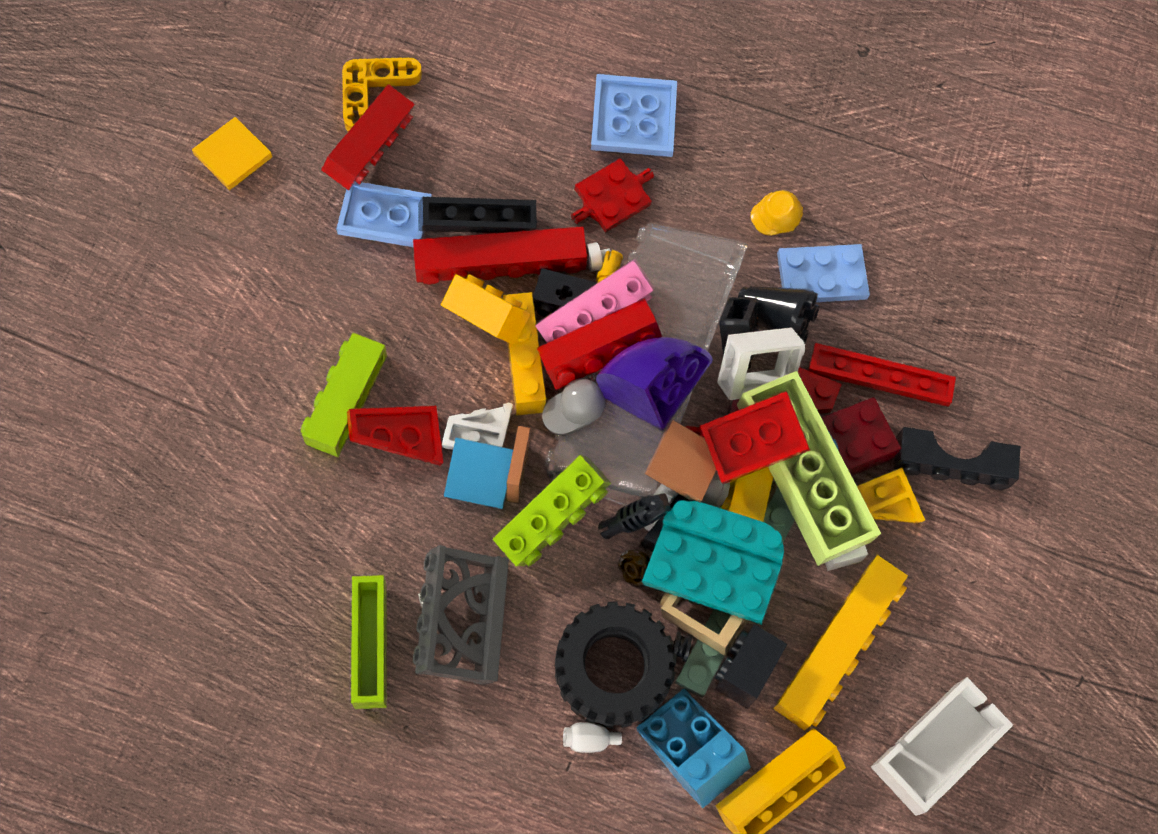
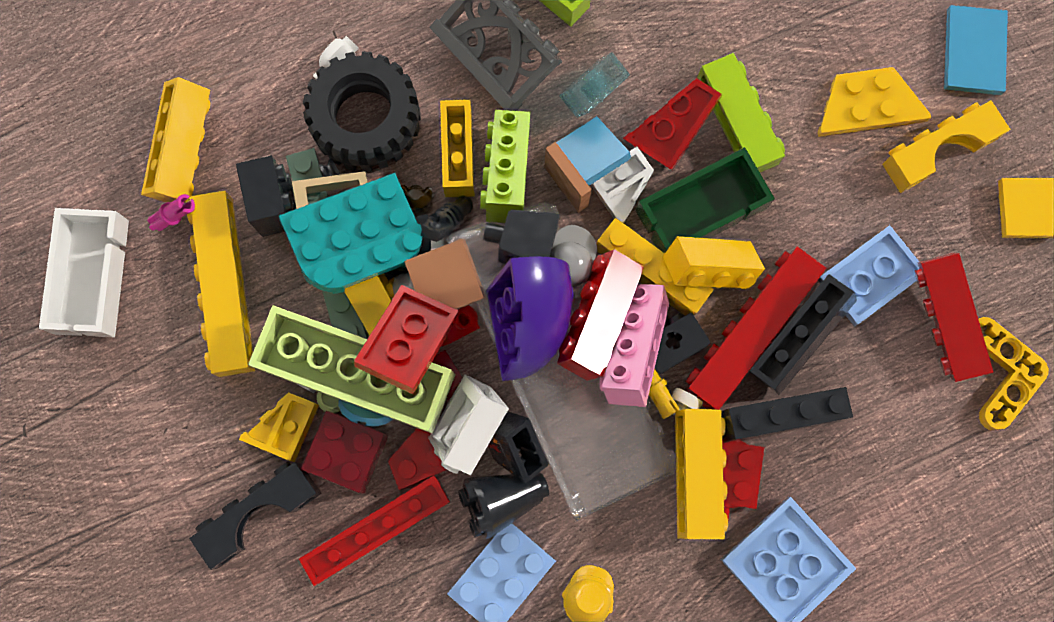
camera: 140 degrees right, 10 degrees up
(130, 281) = (976, 50): none -> dark azure tile
(245, 319) = (870, 102): none -> yellow wing
(270, 250) = (973, 130): none -> yellow arch
(423, 513) = (594, 85): none -> clear light blue brick
(444, 357) = (706, 201): none -> dark green piece
(538, 182) = (786, 414): none -> black brick
(572, 566) = (457, 148): none -> yellow brick
(601, 434) = (523, 234): none -> black torso
(637, 201) = (700, 474): none -> yellow brick
(694, 747) = (259, 116): dark azure slope -> none
(834, 729) = (171, 213): none -> dark pink axle

